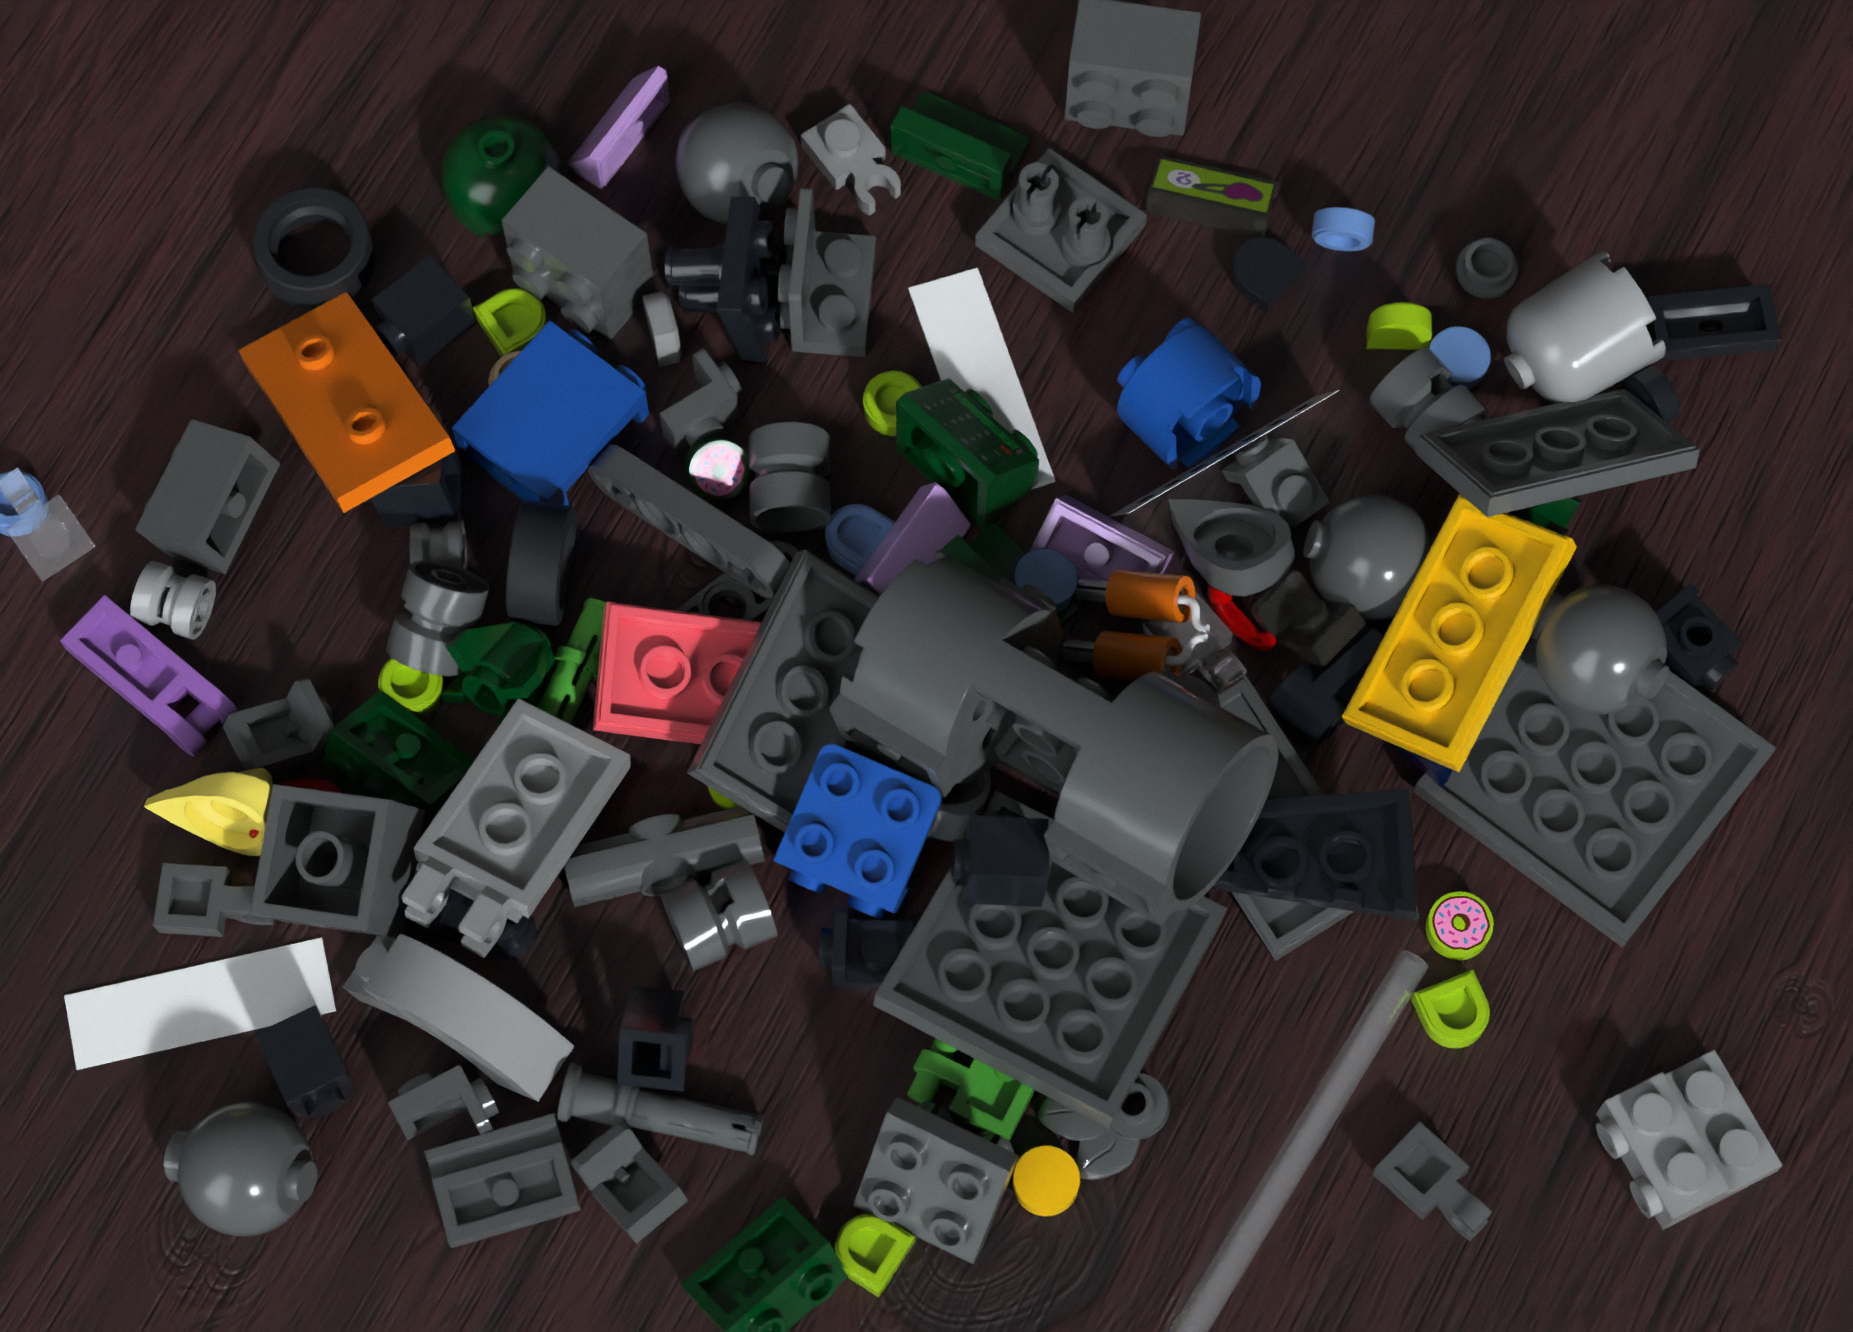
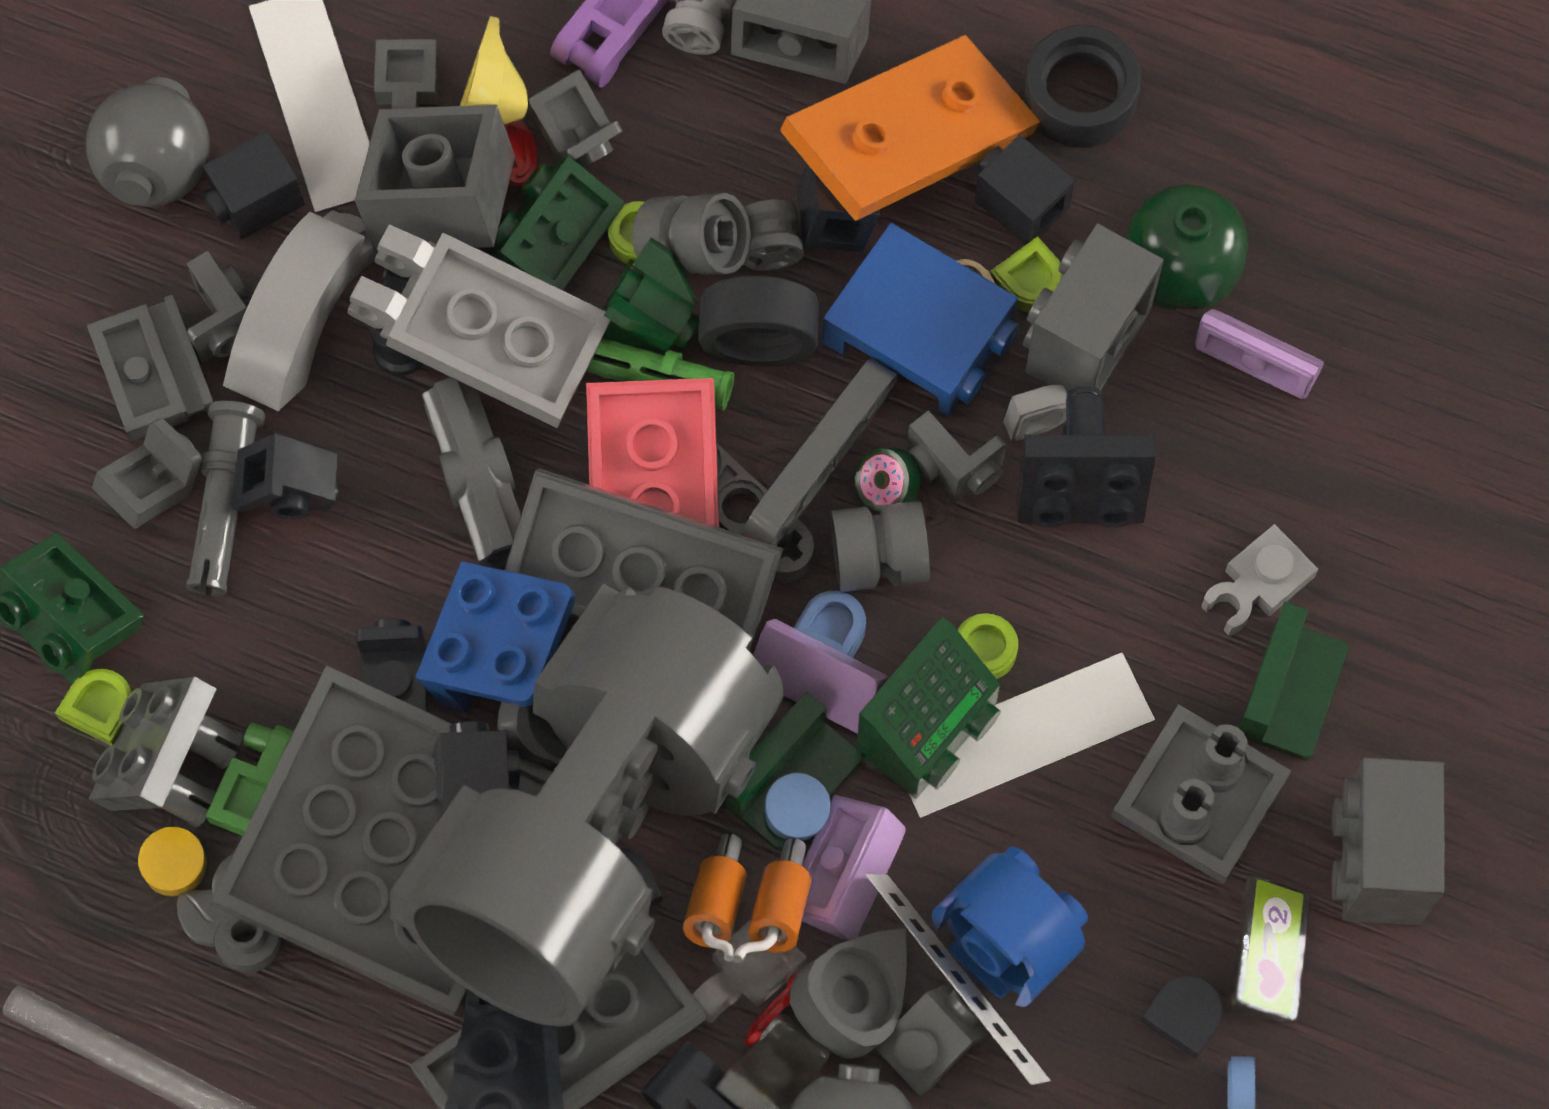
camera: 85 degrees right, 0 degrees up
(719, 914) = (412, 520): dark grey wheel -> none
(736, 153) = (1217, 454): dark grey brick -> none
(825, 285) = (1104, 557): dark grey bracket -> none

